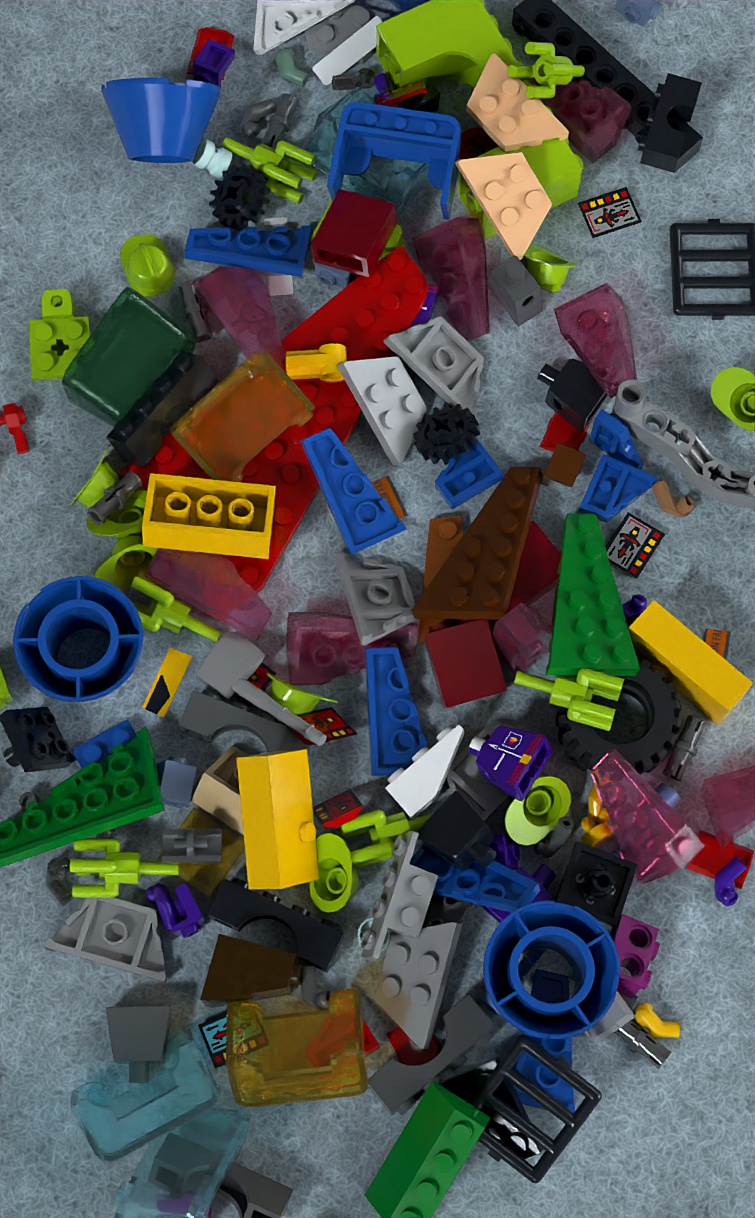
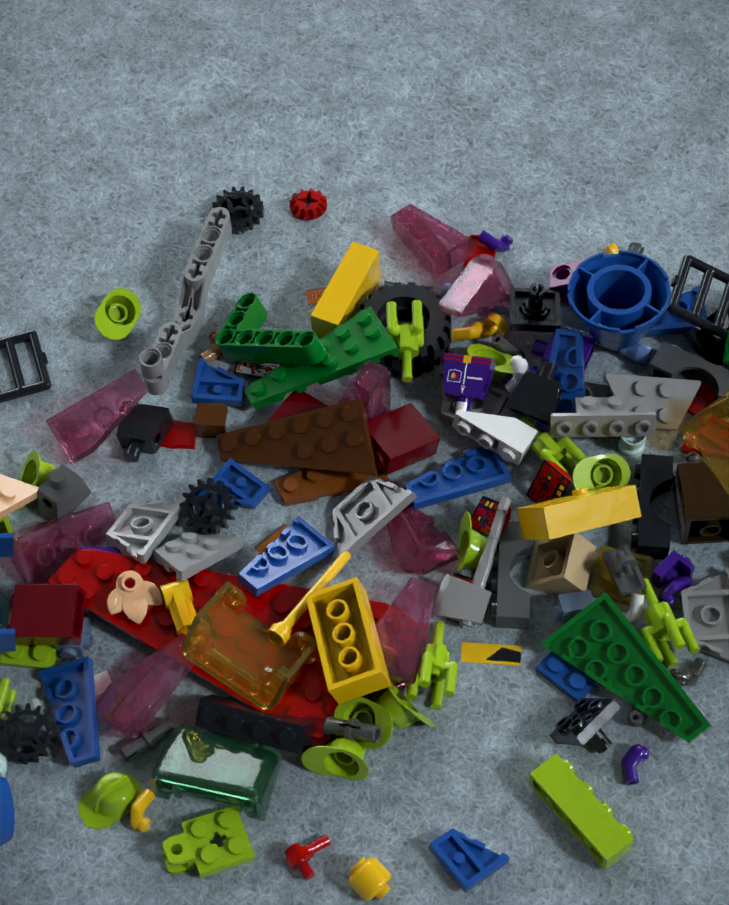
camera: 105 degrees left, 15 degrees down
(59, 612) = (499, 671): blue cone -> none
(116, 282) = (138, 808): none -> yellow arm
(149, 845) = (635, 609): none -> white arm
(250, 456) = (280, 632): none -> yellow piece
(341, 319) = (133, 600): none -> light nougat plate
(501, 826) = (519, 366): none -> white arm
(614, 439) = (177, 390): blue wing -> none
(664, 521) = (245, 342): none -> green beam

